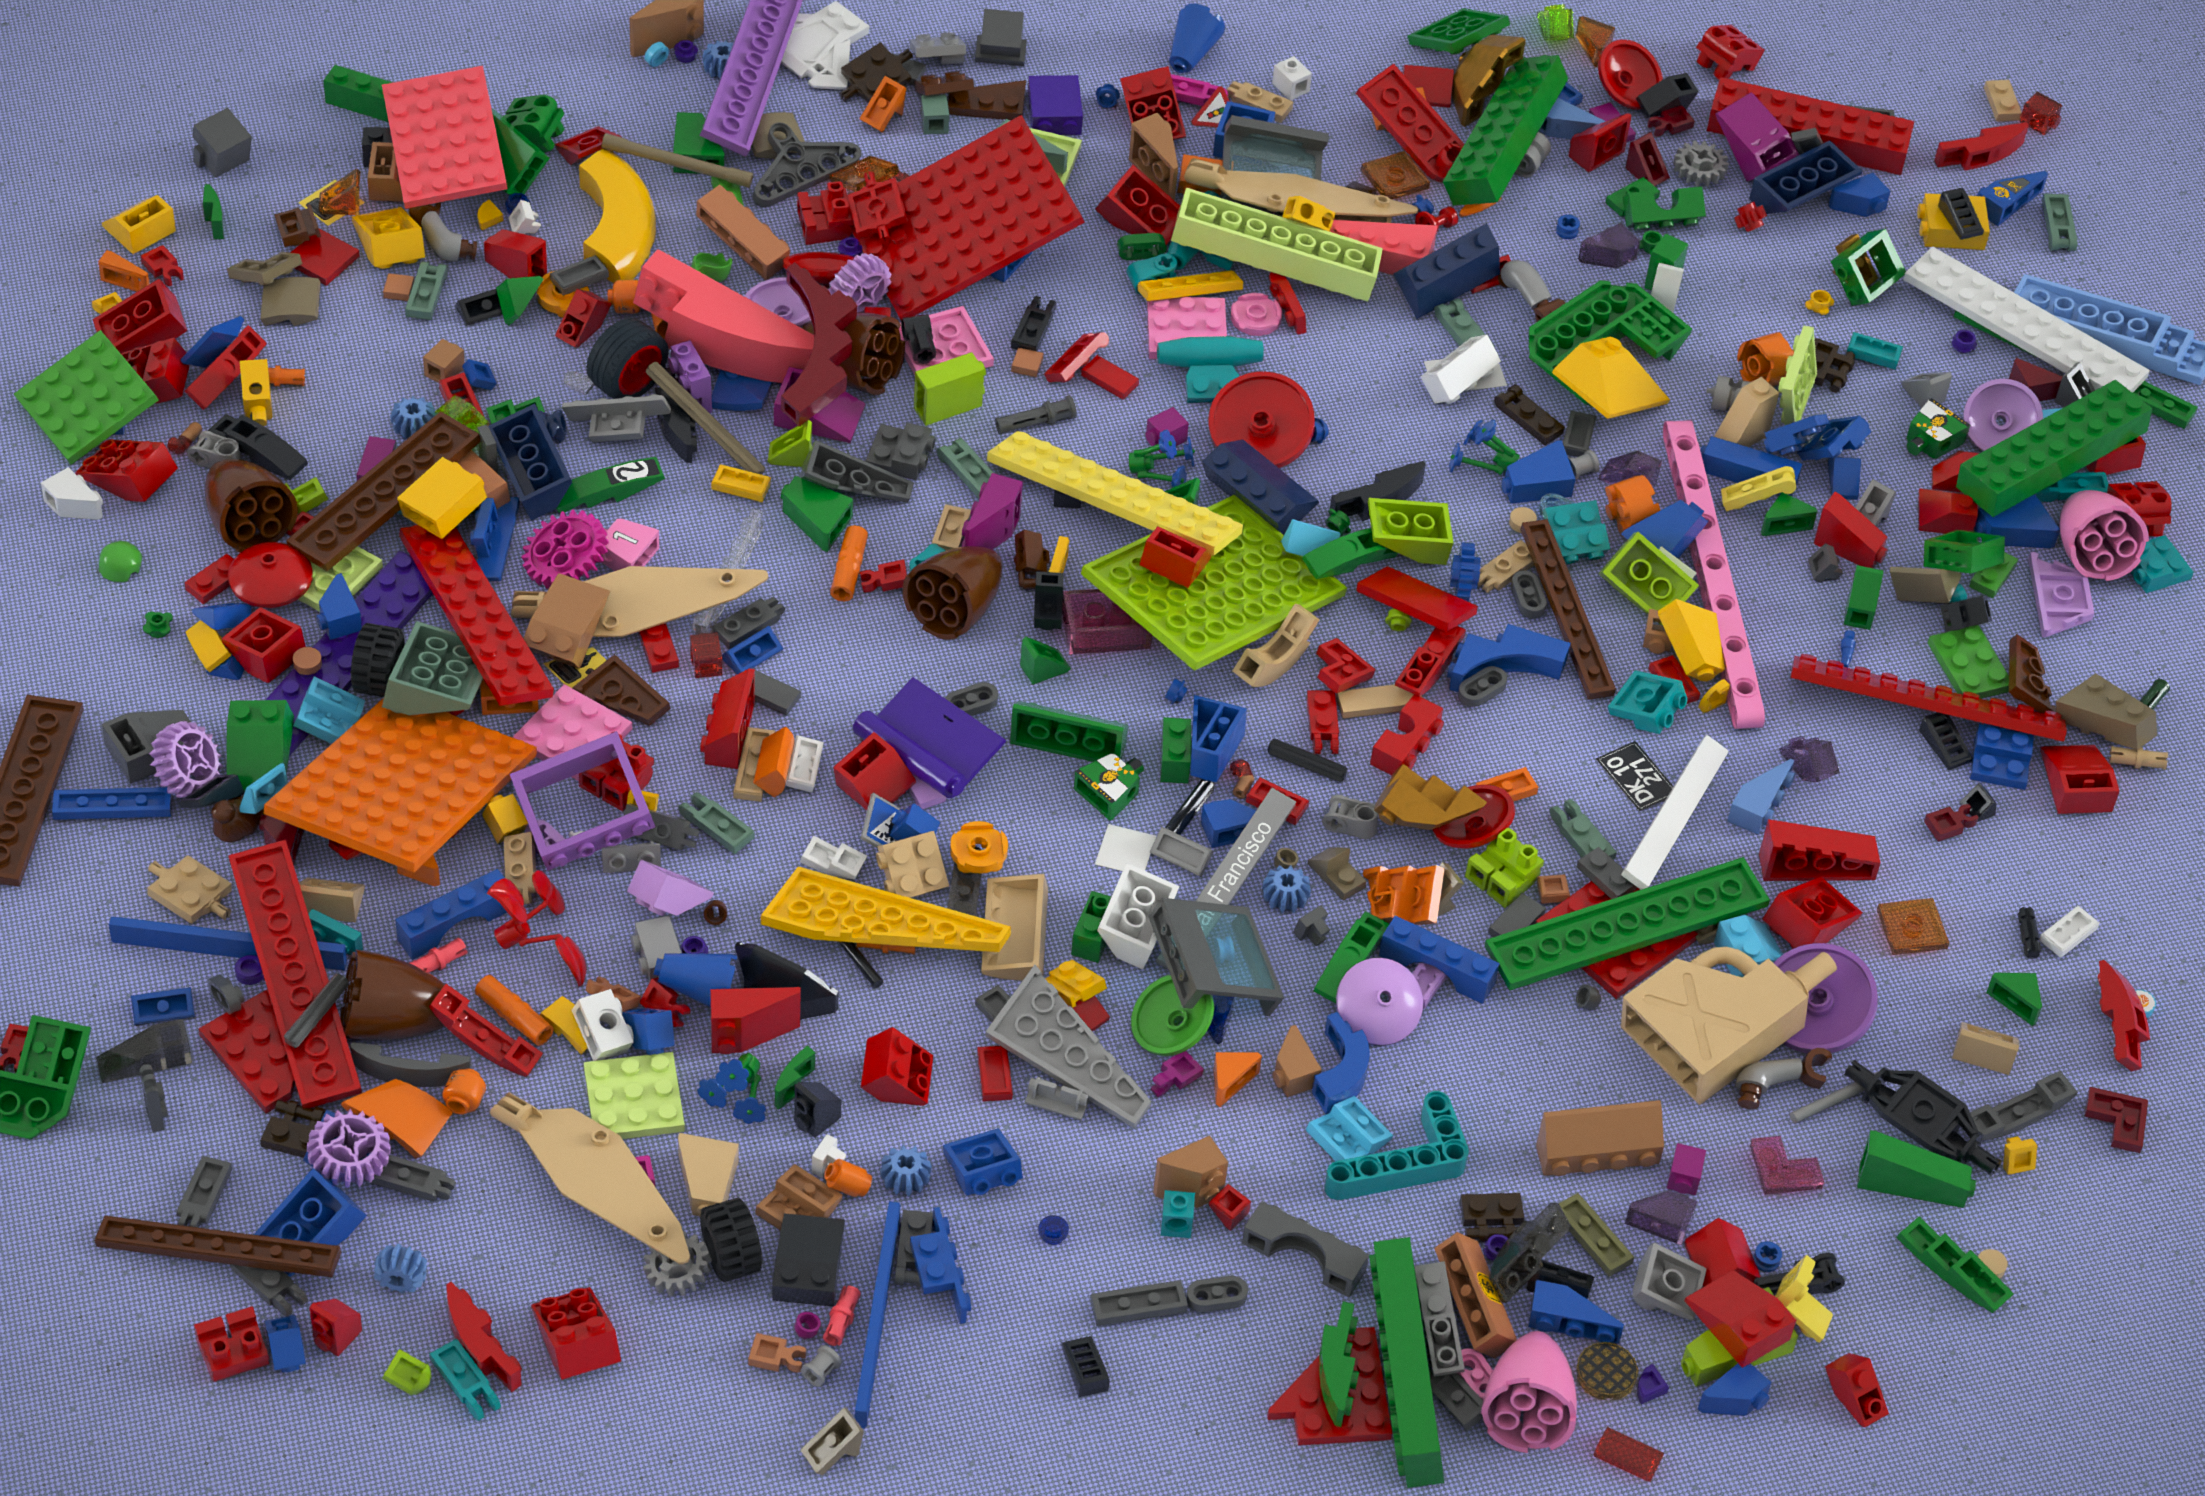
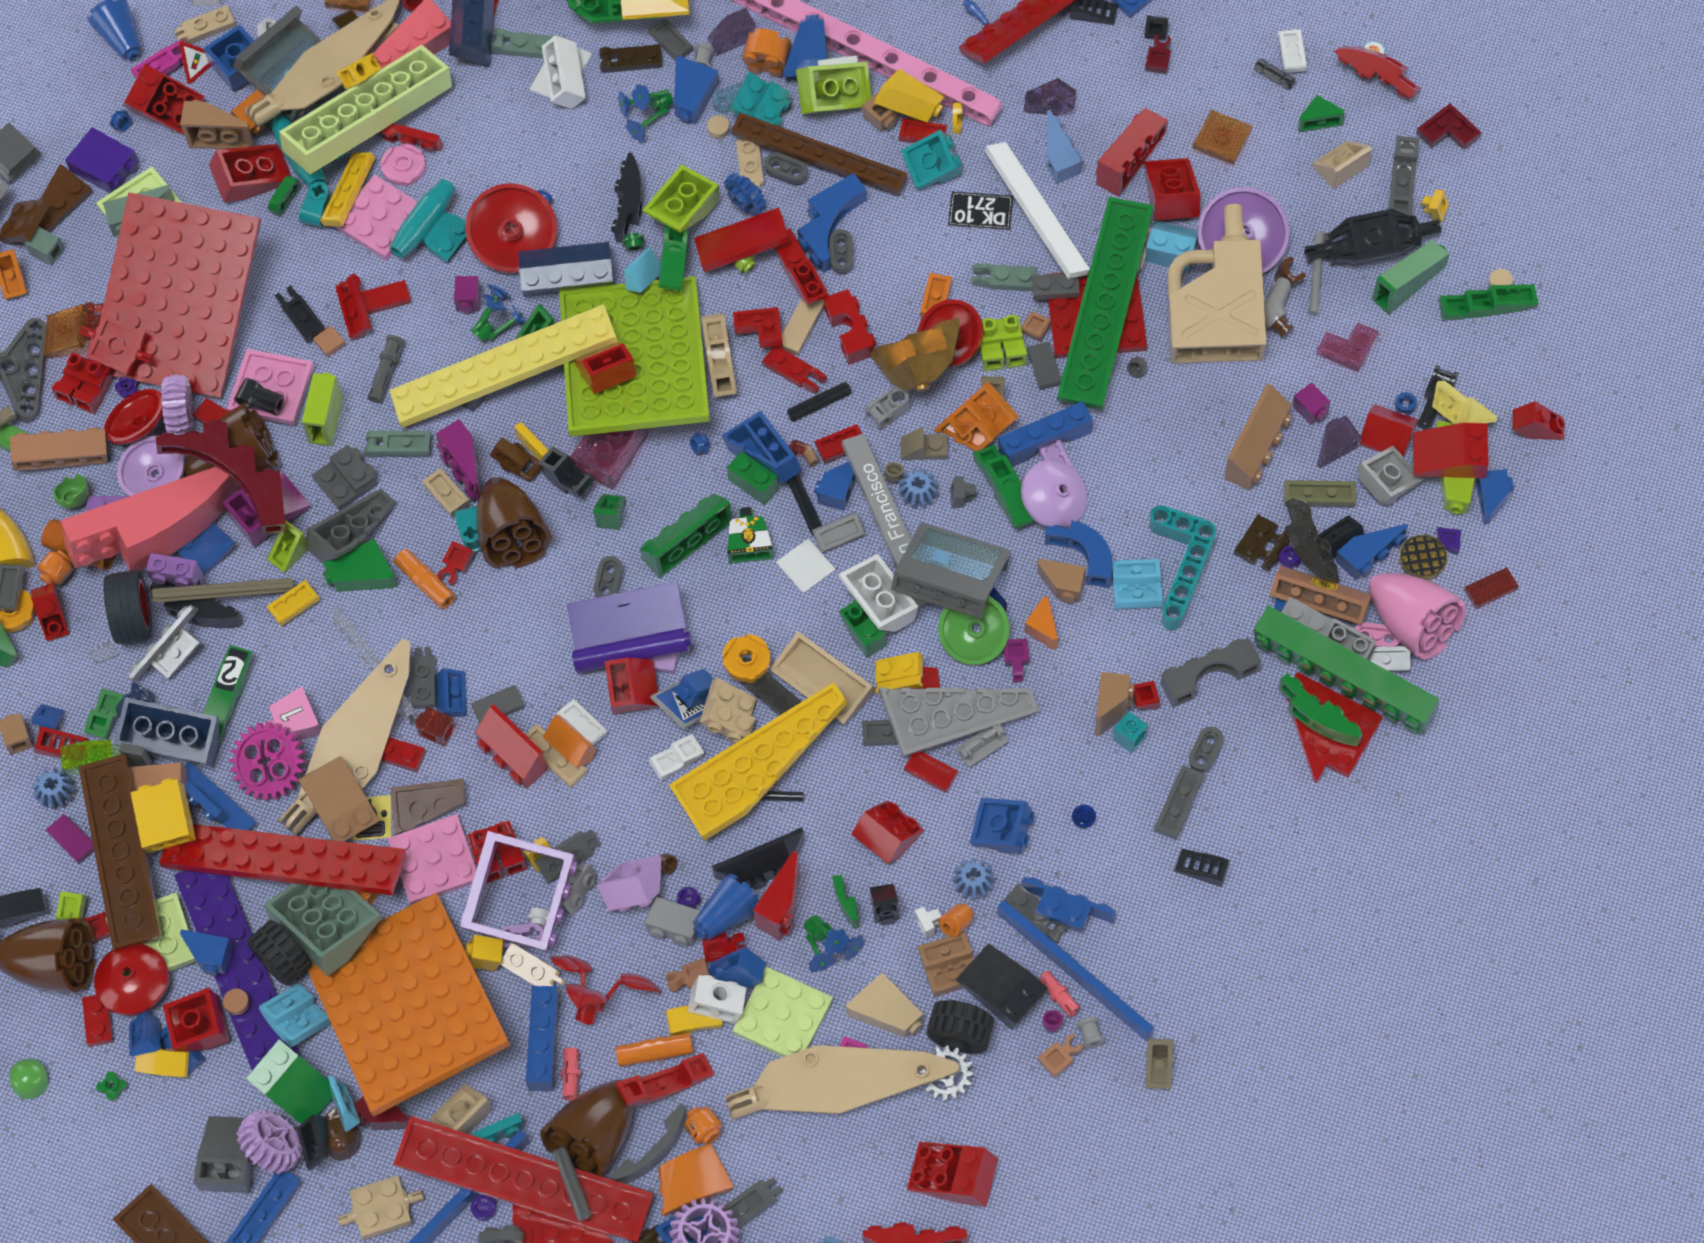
camera: 45 degrees left, 15 degrees up
(717, 822) = (589, 813): sand green hinge -> none

